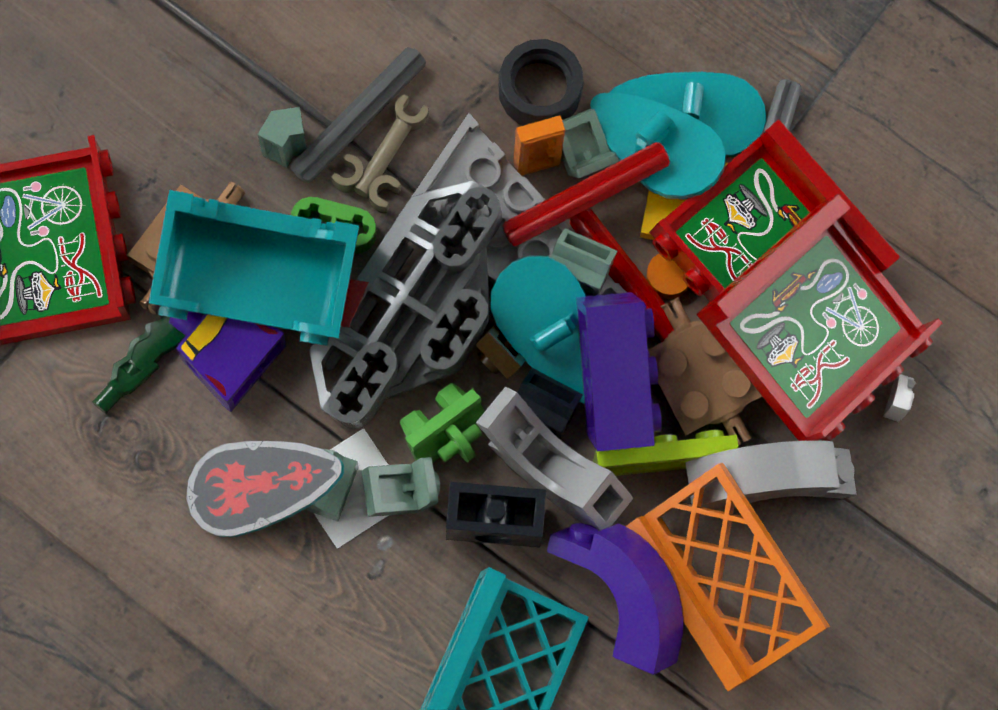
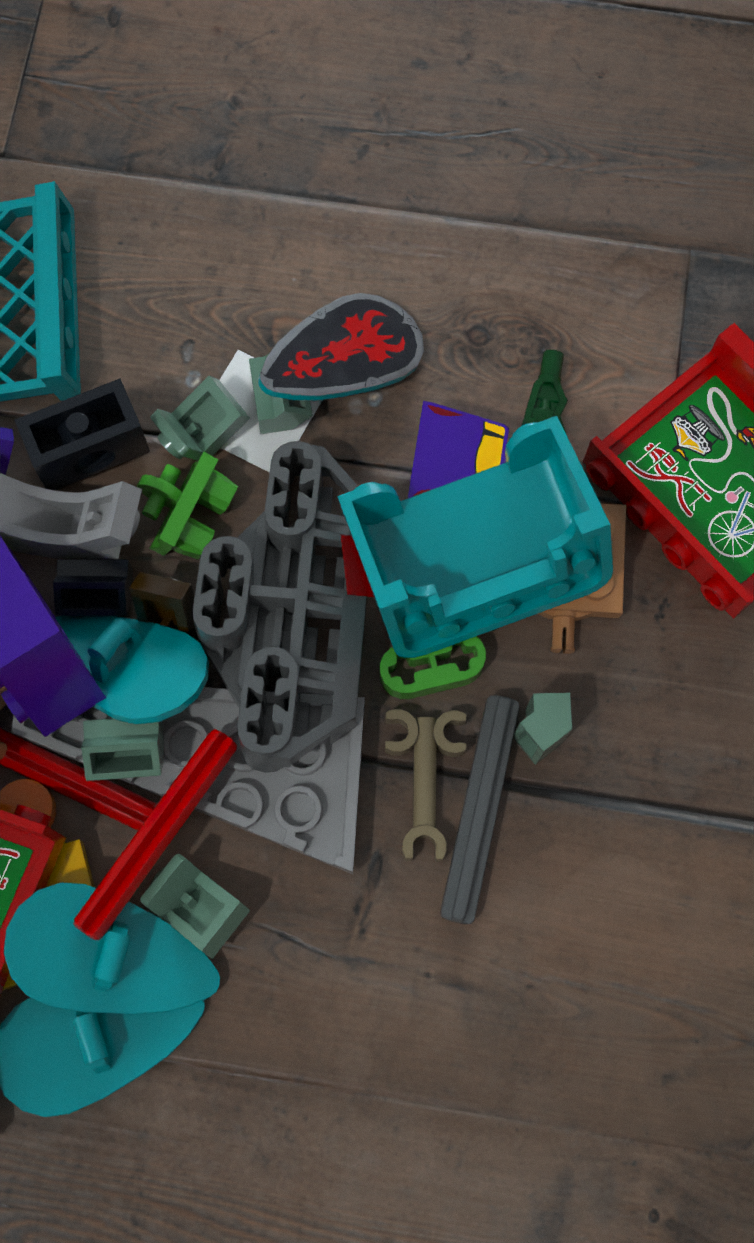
camera: 155 degrees right, 0 degrees up
(538, 145) = (244, 862): orange plate -> none
(540, 52) = (244, 951): black tyre -> none

